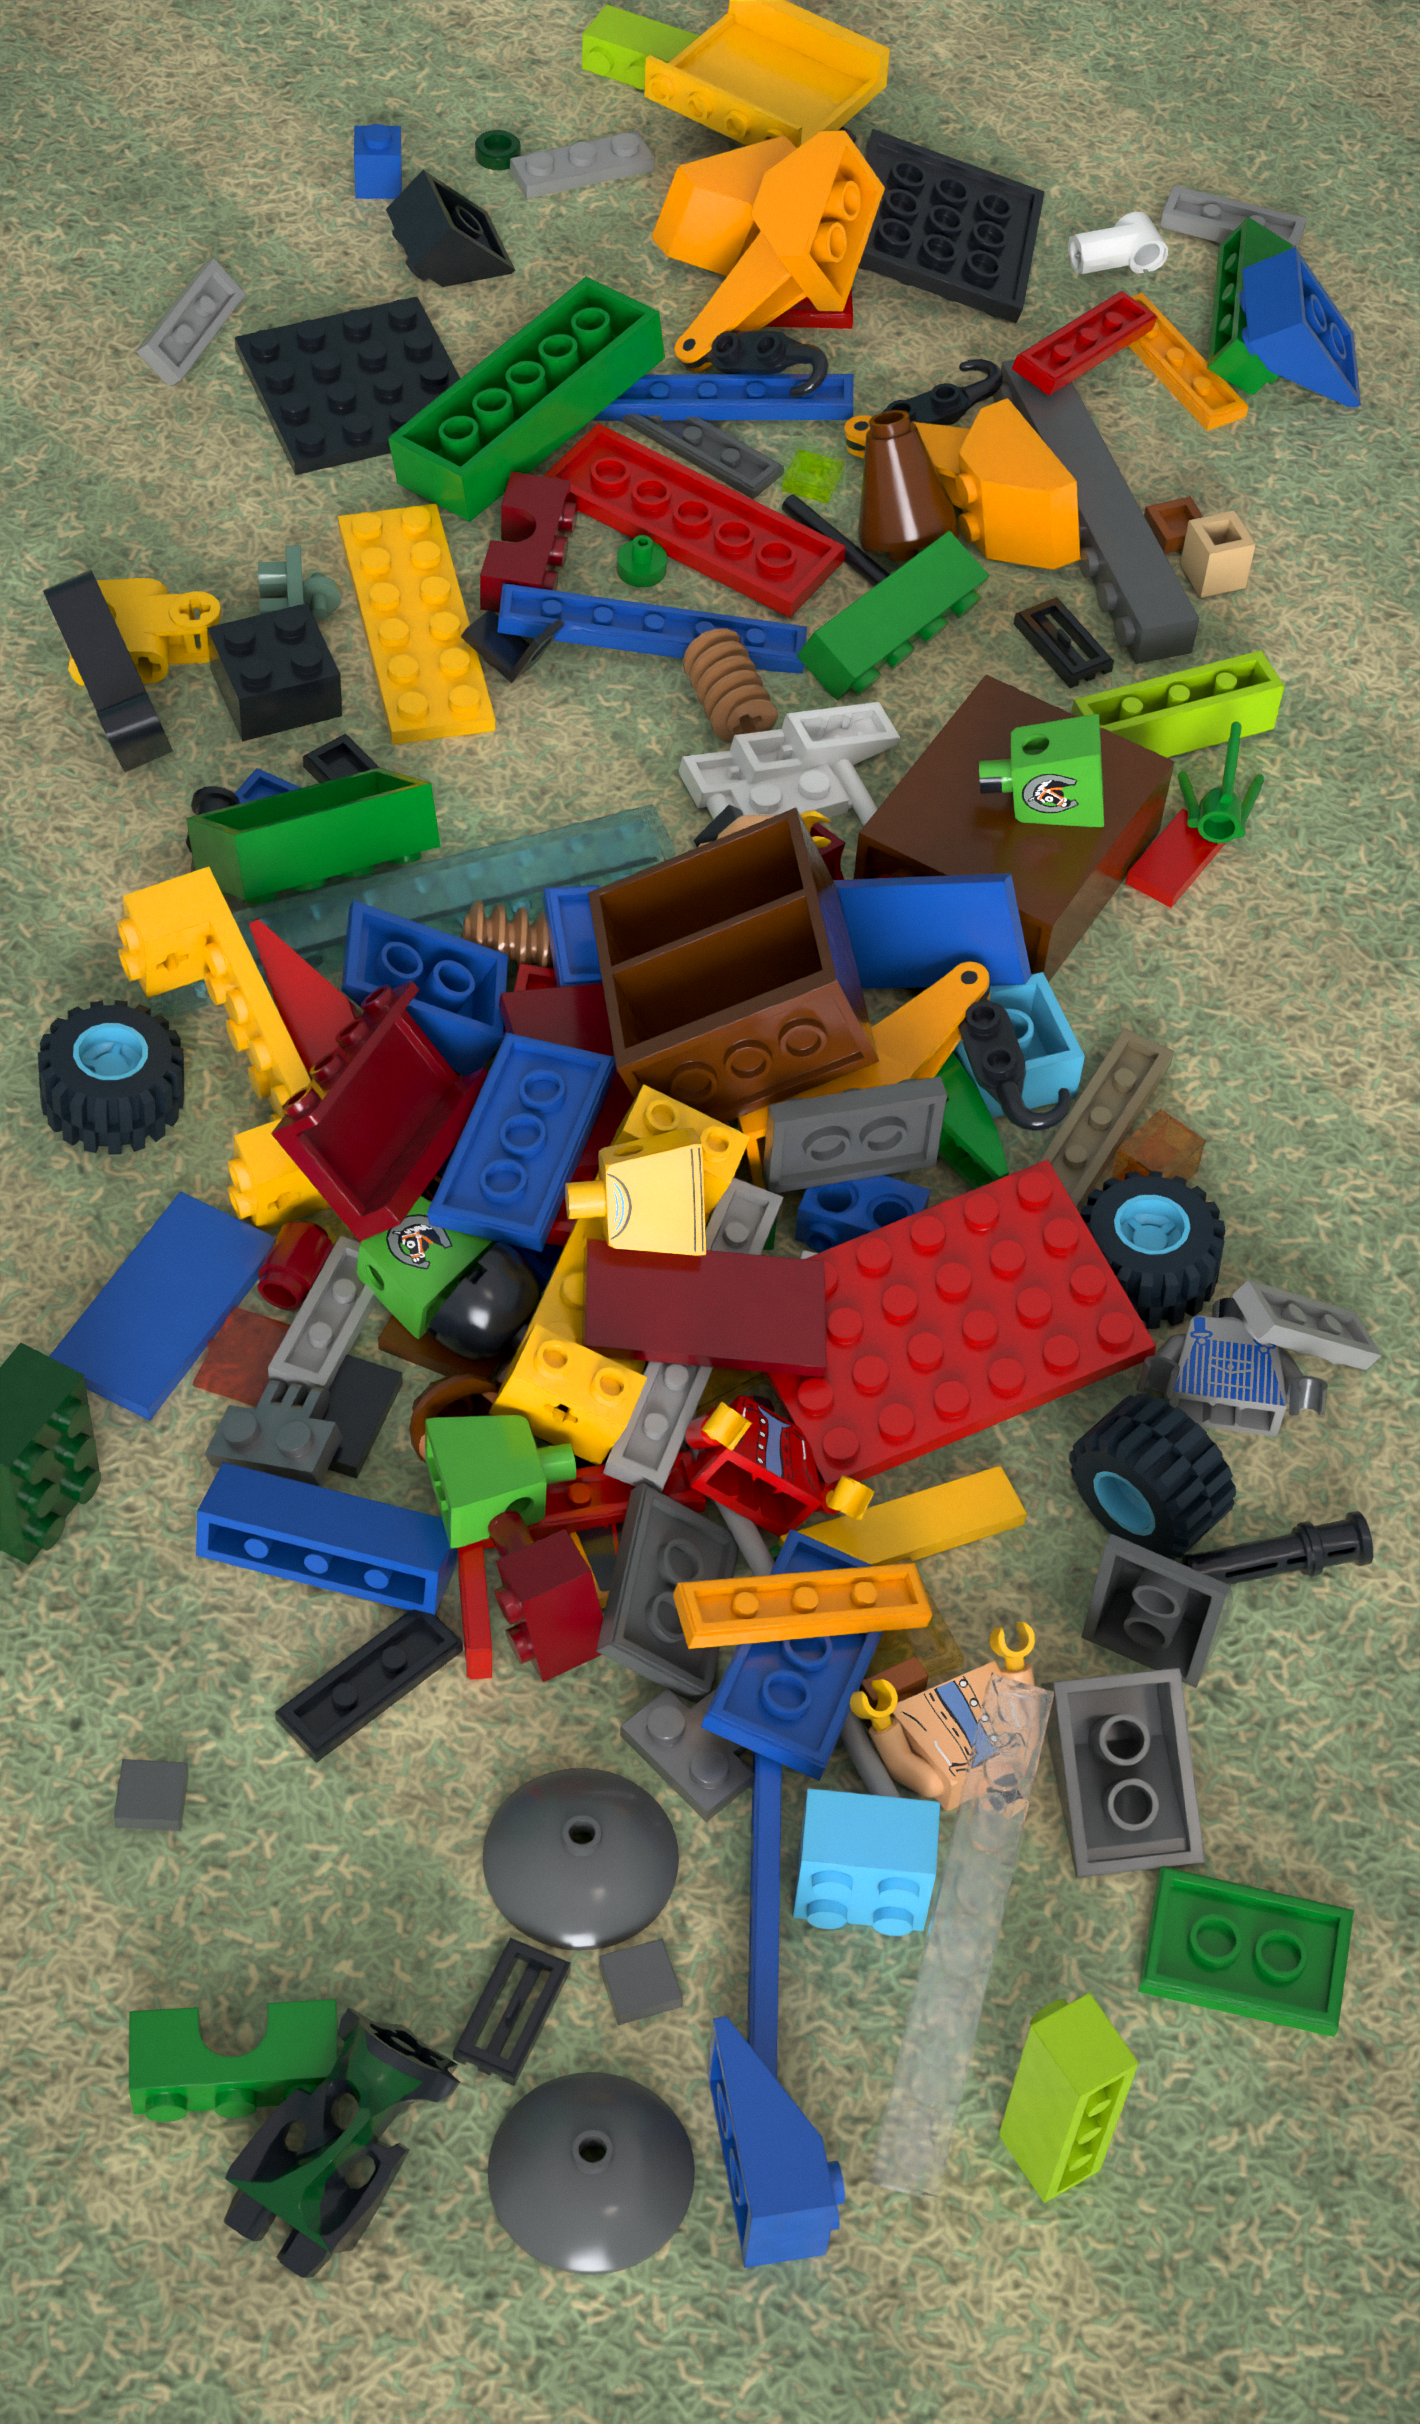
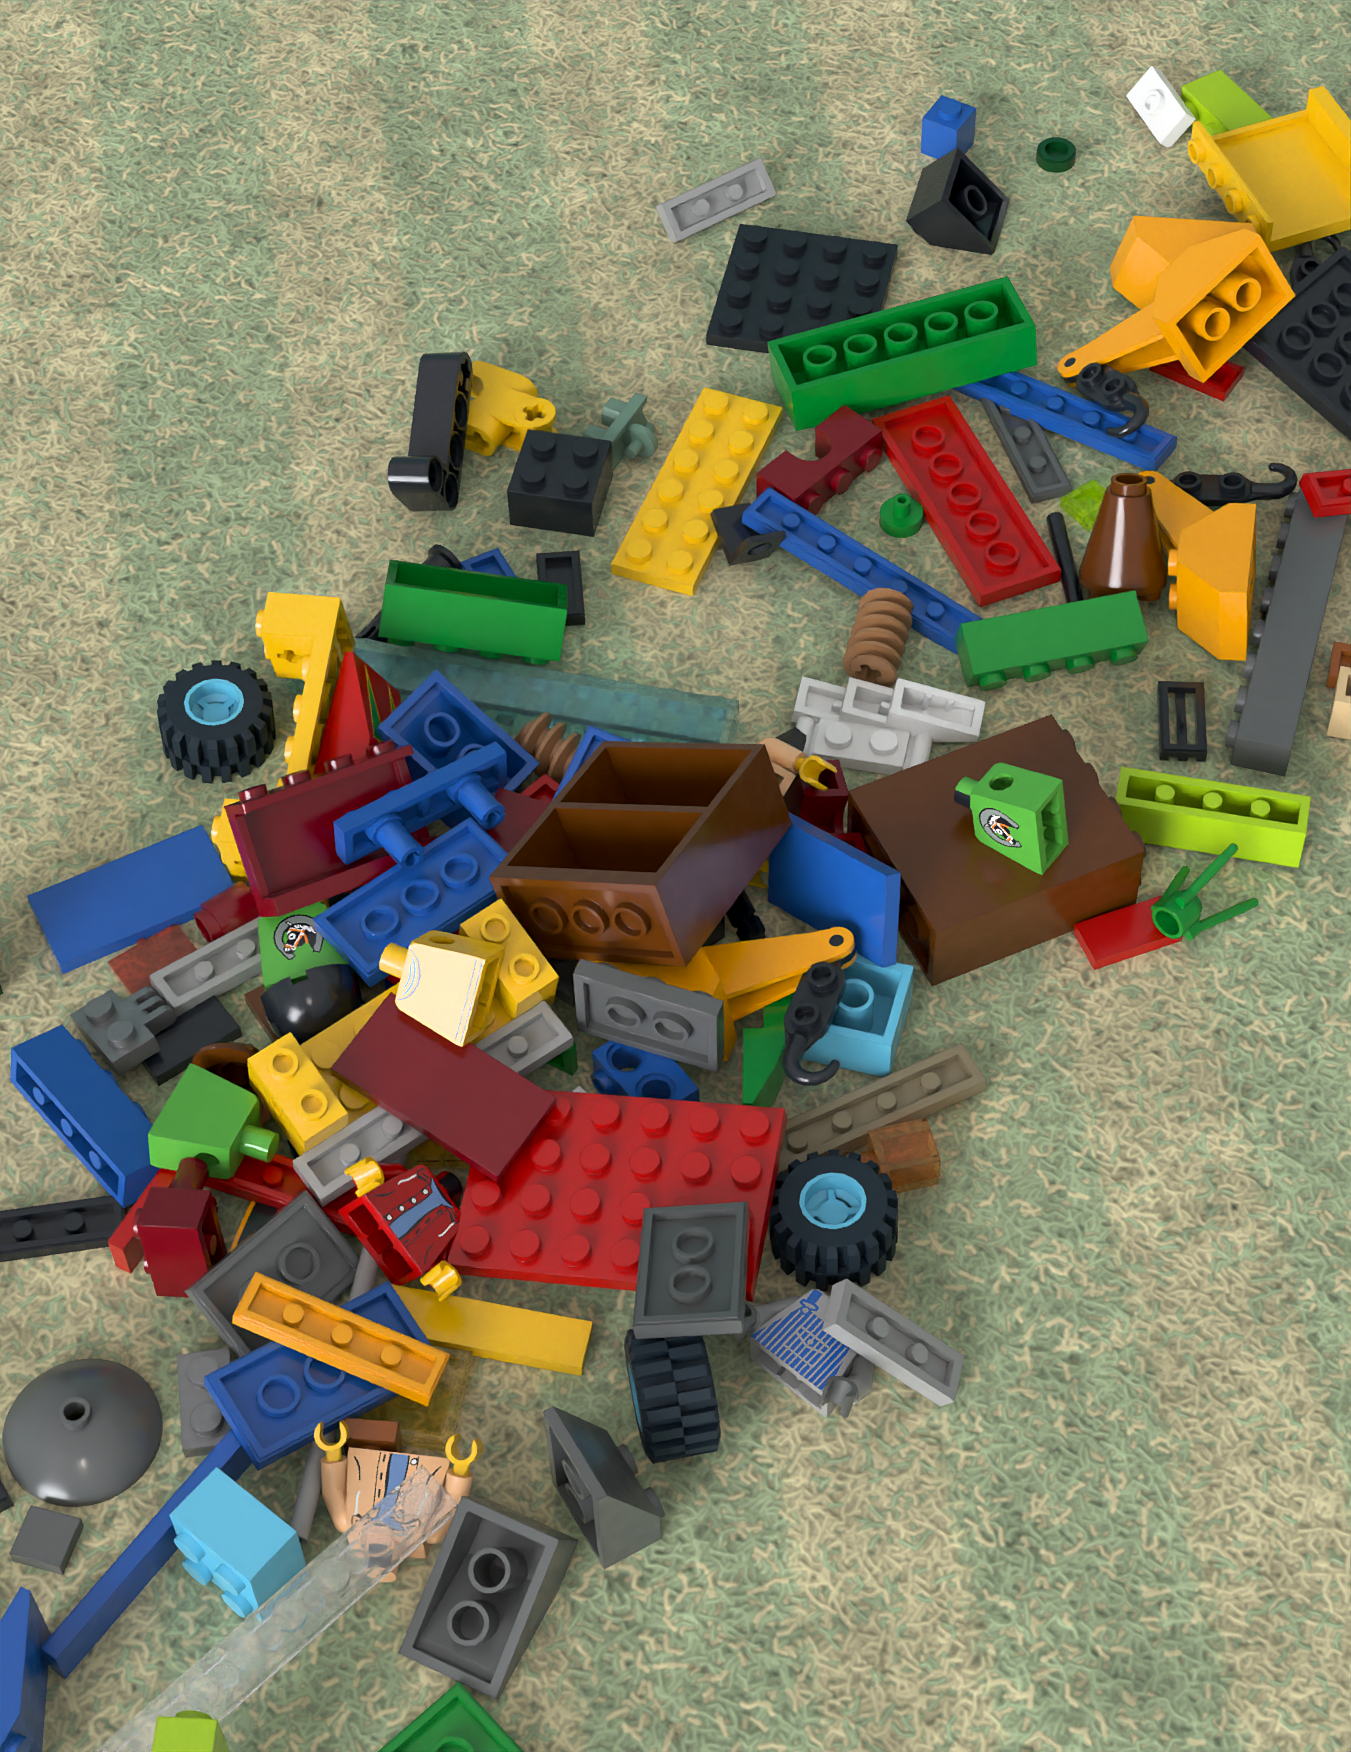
camera: 40 degrees right, 0 degrees up
(456, 1022) = (440, 792): none -> blue plate
(568, 64) = (1160, 107): none -> white plate
(582, 164) = (1112, 190): light grey plate -> none
(1105, 1347) = (692, 1271): none -> dark grey tile
(1305, 1549) = (764, 1513): black pin -> none

